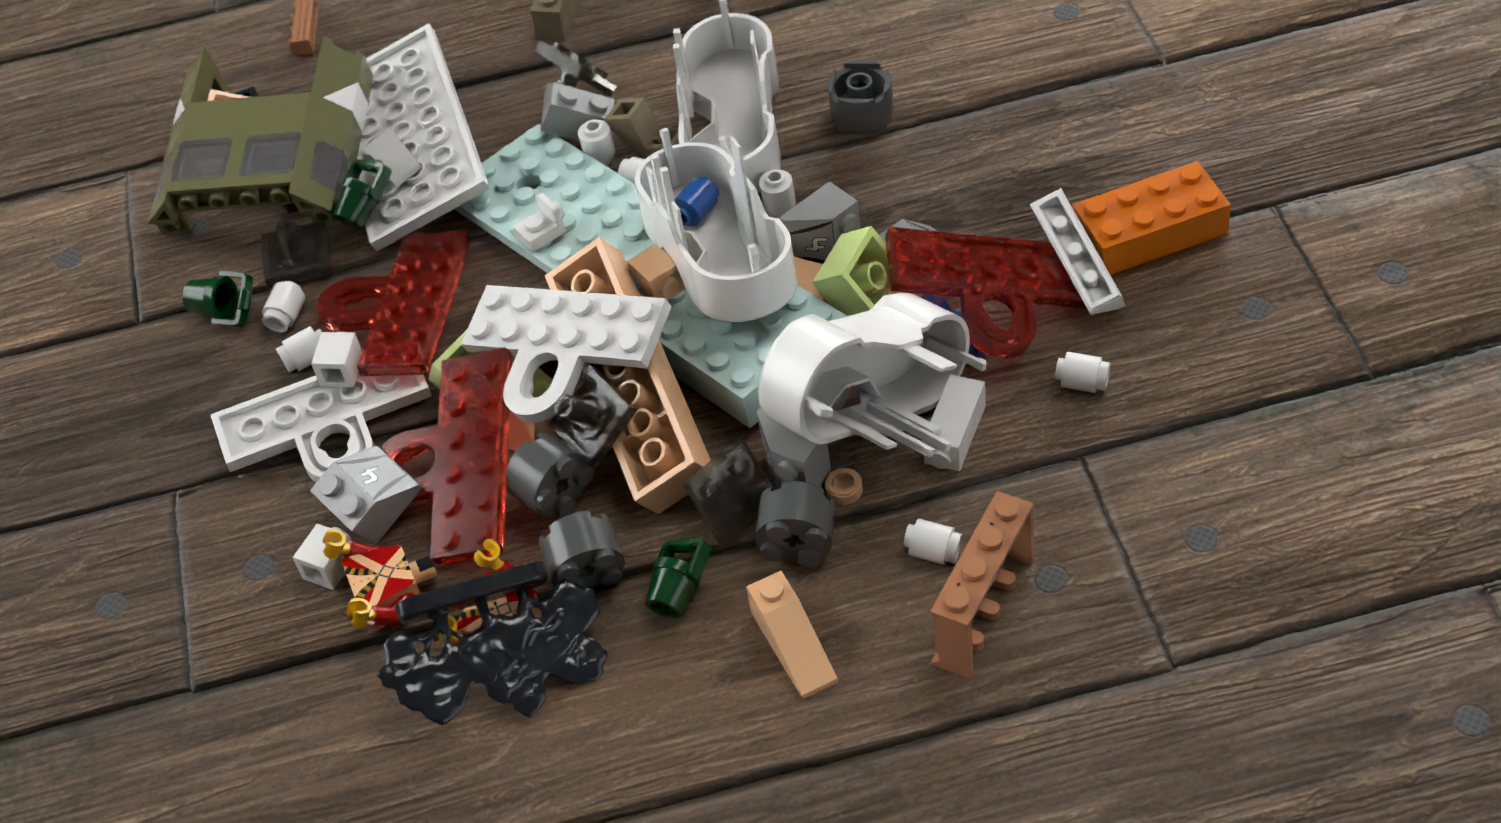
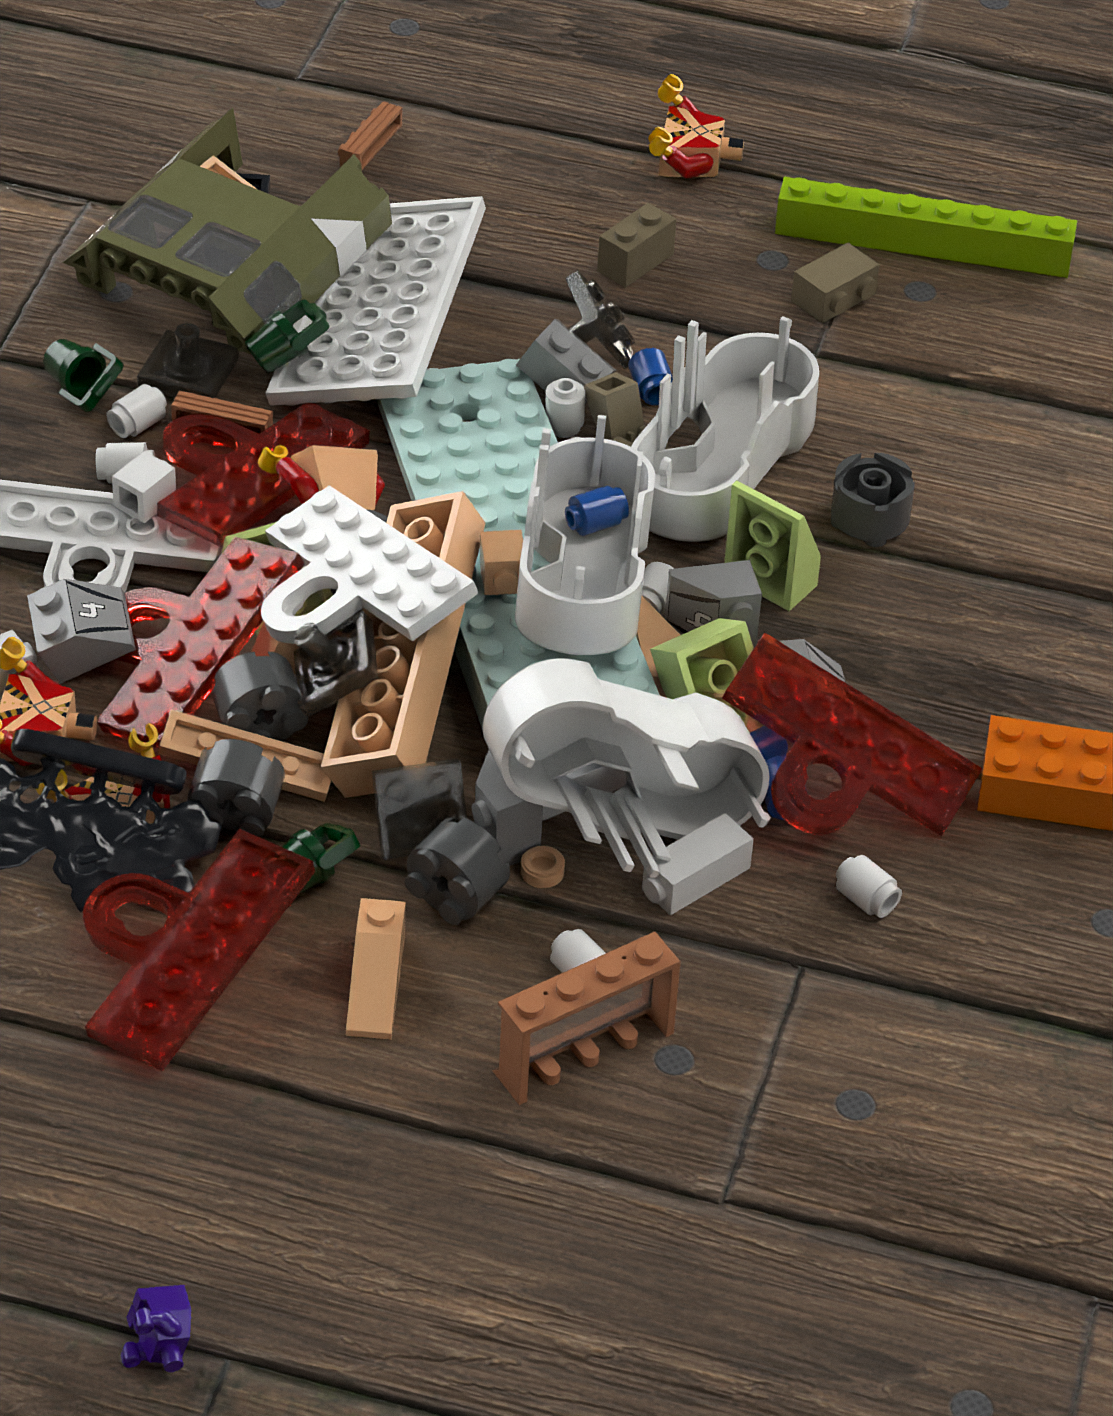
camera: 20 degrees right, 5 degrees down
(370, 267) = (247, 416): none -> nougat piece
(395, 155) = (345, 313): white slope -> none
(466, 279) = (317, 467): none -> light nougat torso
(521, 532) = (188, 735): none -> light nougat plate
(542, 225) = (437, 460): white bracket -> none
(634, 85) = (648, 369): none -> blue brick
(650, 698) = (198, 949): none -> clear red plate
(777, 192) = (705, 544): white brick -> none
(825, 156) = (775, 543): none -> yellowish green slope
(1077, 253) = (957, 767): white slope -> none

